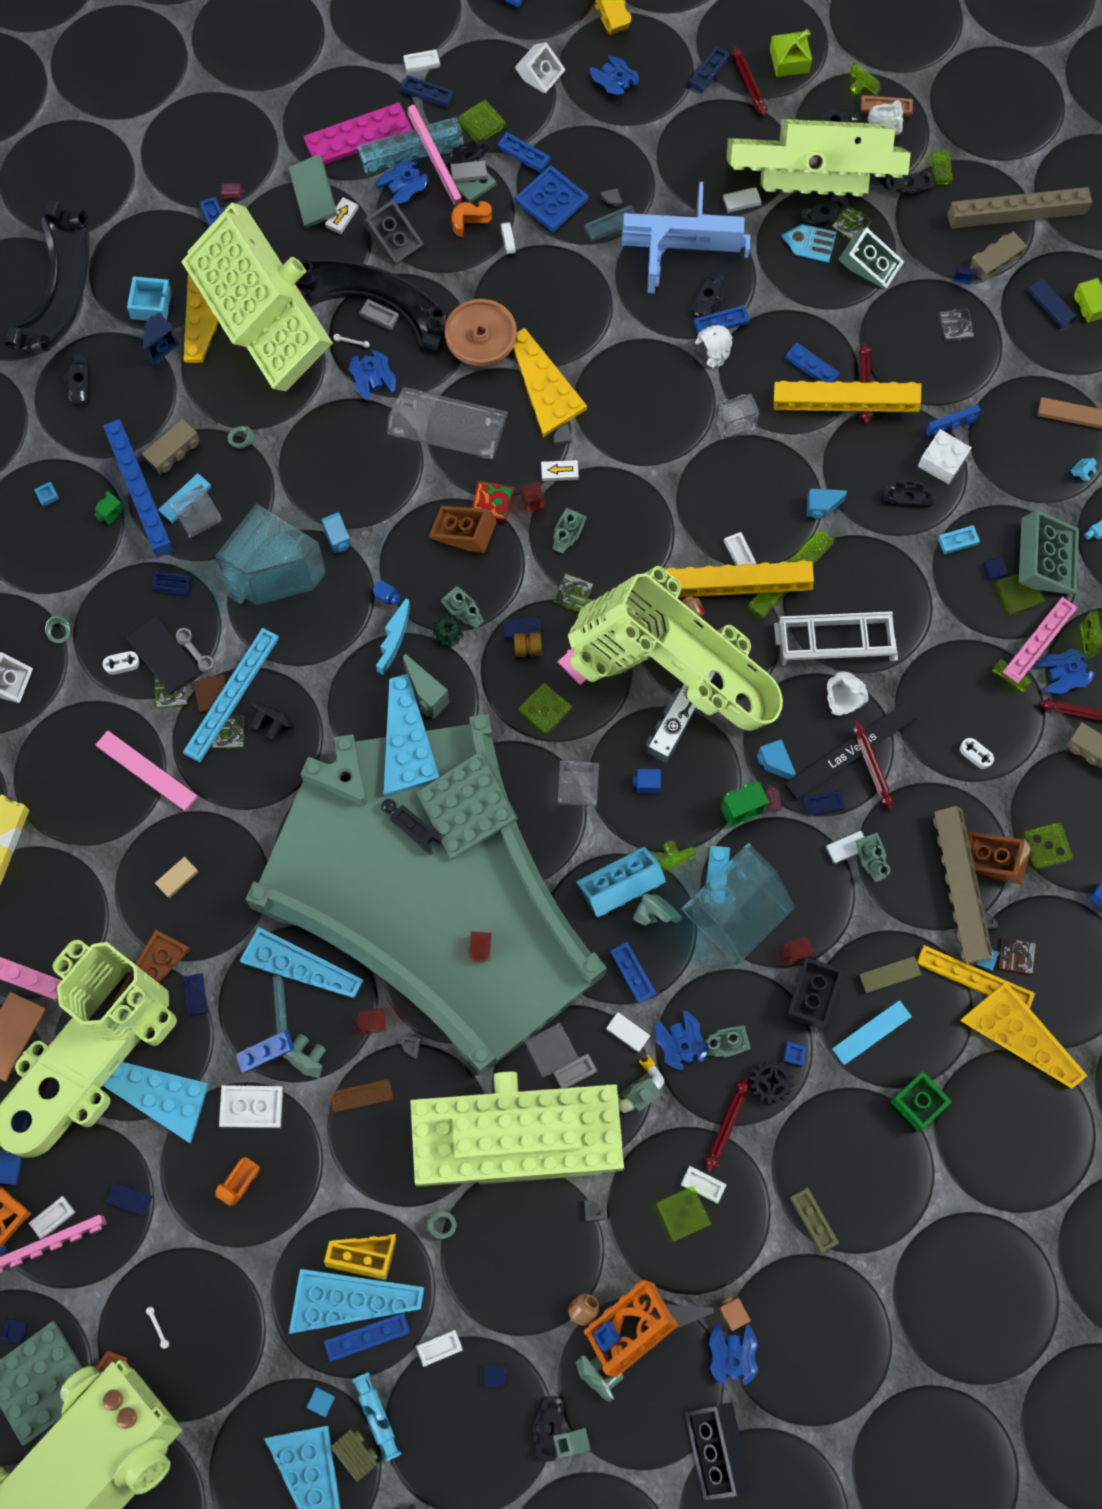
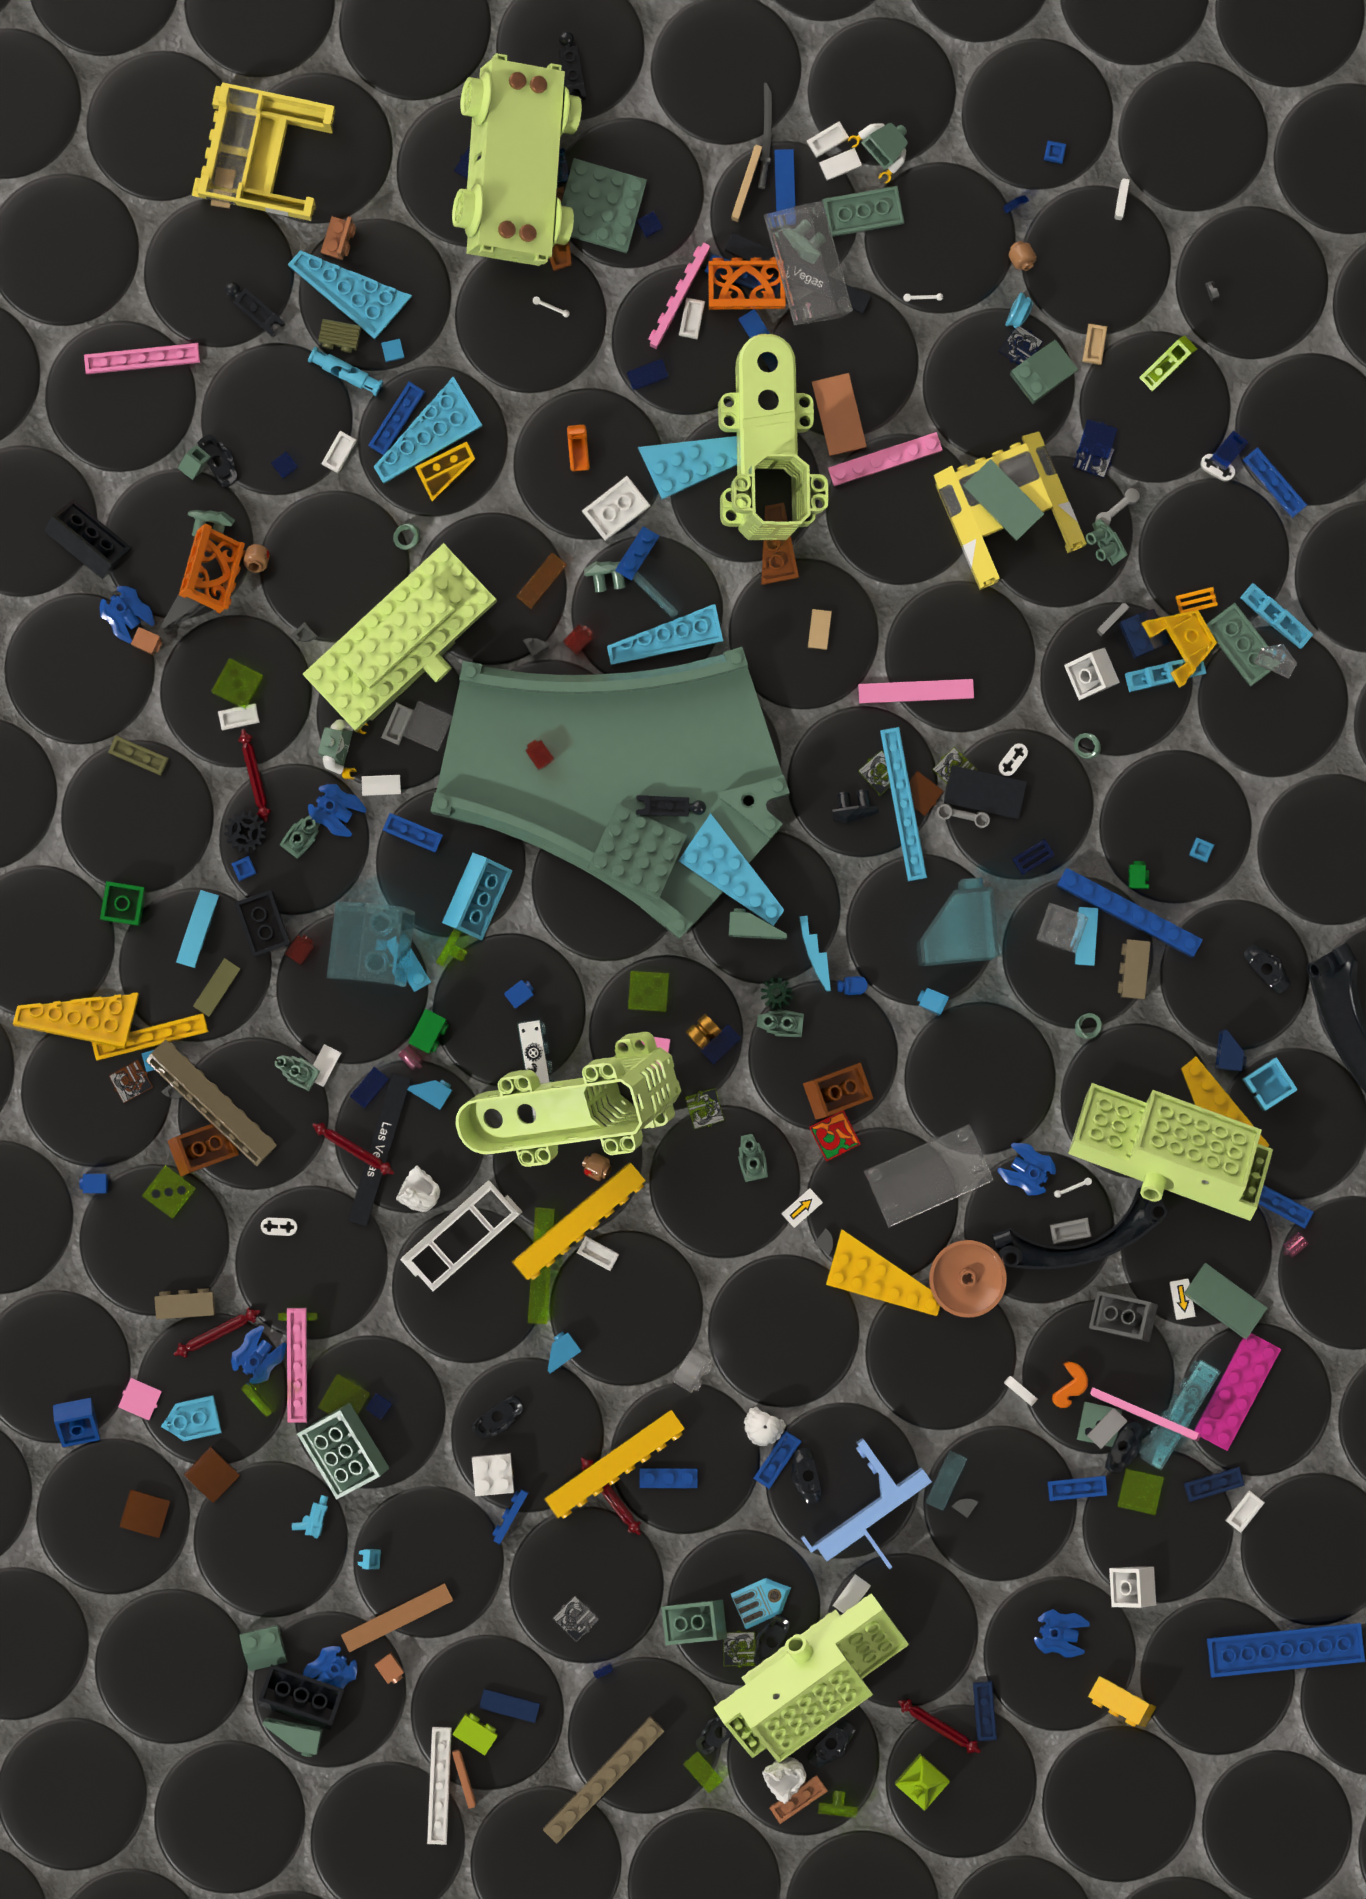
camera: 140 degrees right, 15 degrees up
(195, 994) = (727, 555): clear blue tile -> none
(403, 181) = (1156, 1376): blue piece -> none
(532, 496) = (803, 1163): clear red brick -> none
(551, 198) = (1015, 1461): blue plate -> none
(578, 783) = (570, 946): clear brick -> none
(606, 1336) = (224, 550): blue tile -> none
(655, 905) = (432, 894): sand green hair -> none
(958, 539) = (427, 1407): medium azure plate -> none
(998, 256) = (588, 1714): dark tan brick -> none

